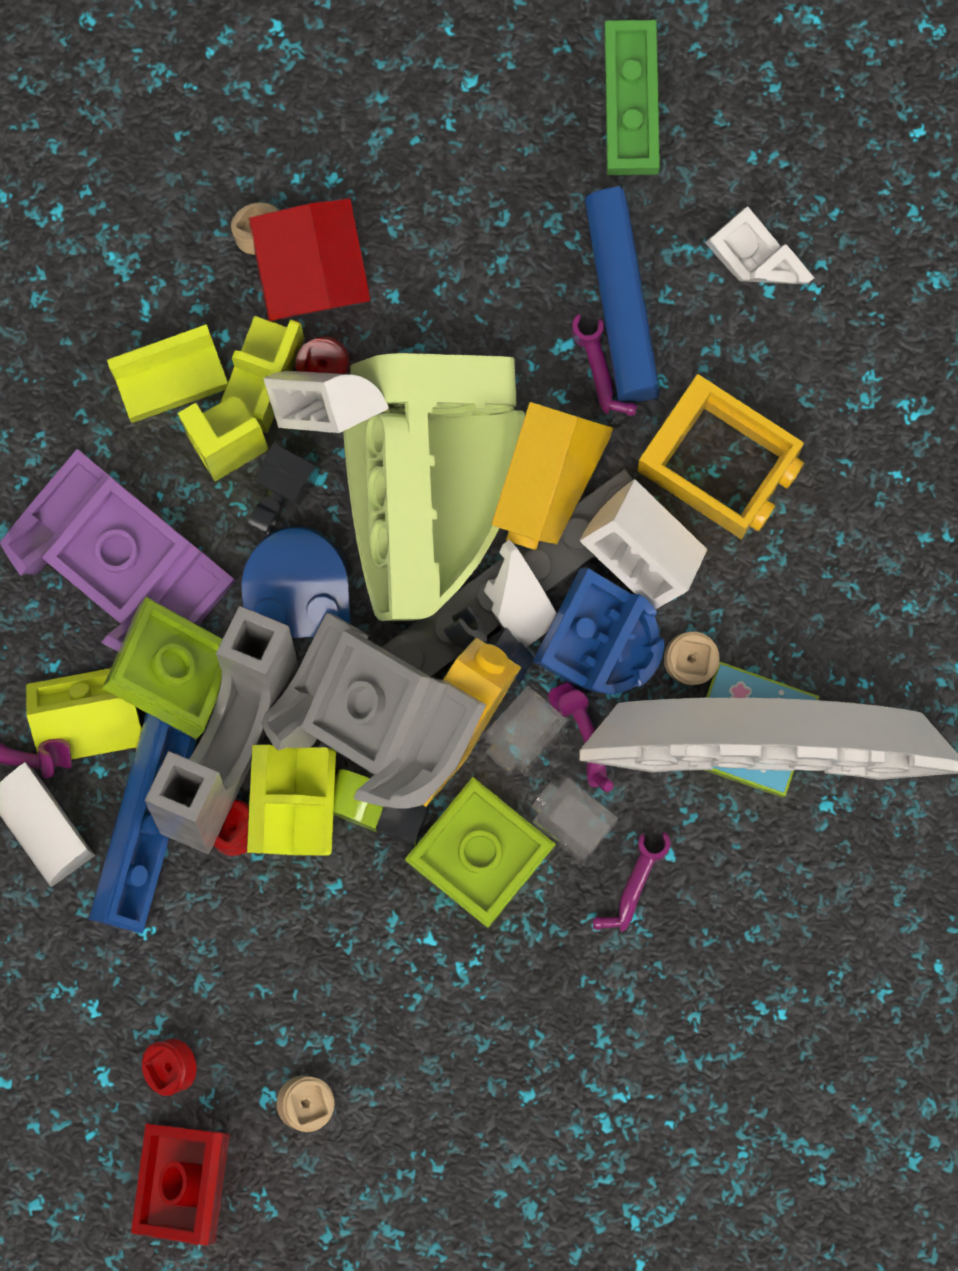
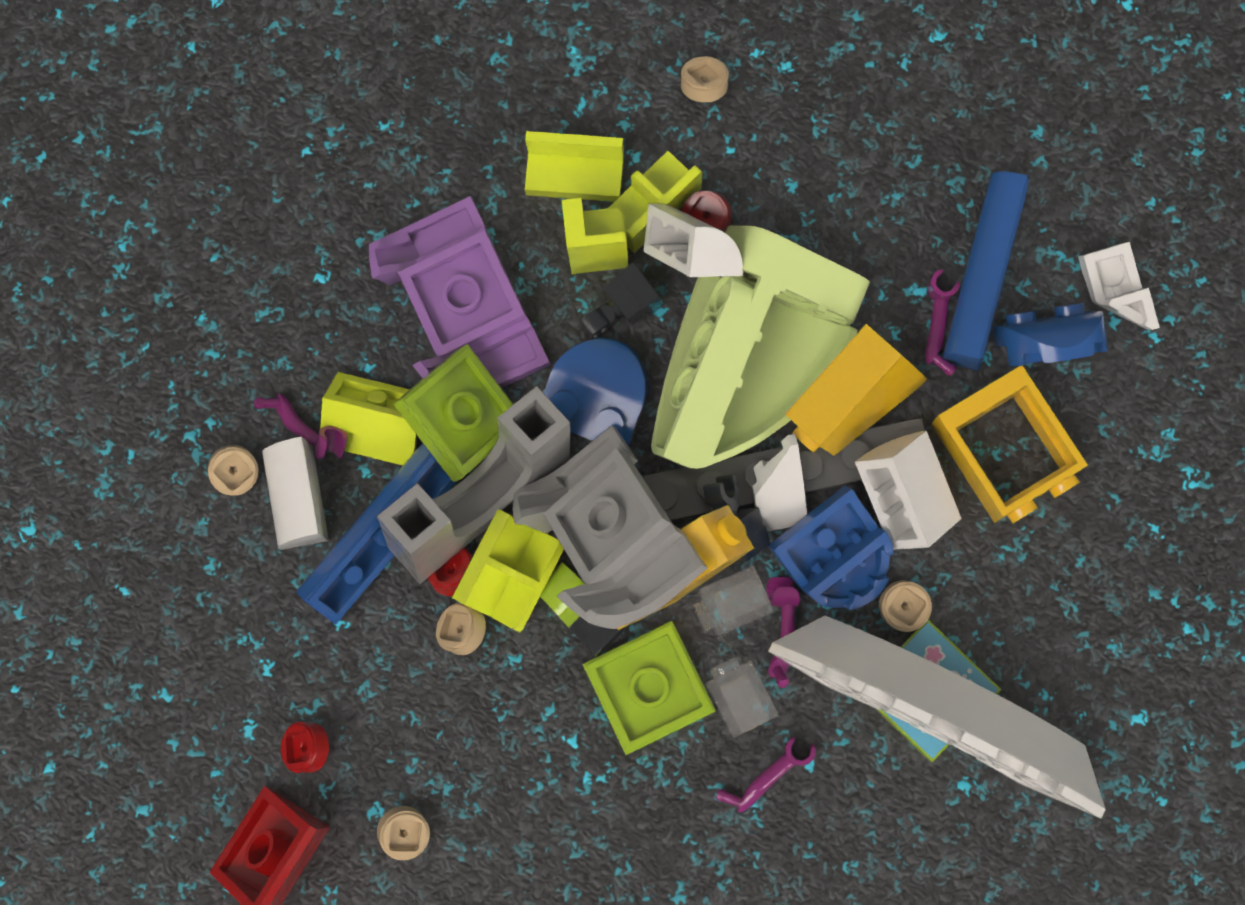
camera: 30 degrees right, 0 degrees up
(269, 880) = (460, 629): none -> tan tile
(309, 258) = (735, 122): red slope -> none
(631, 97) = (1070, 106): bright green plate -> none
(727, 327) = (1057, 338): none -> blue slope

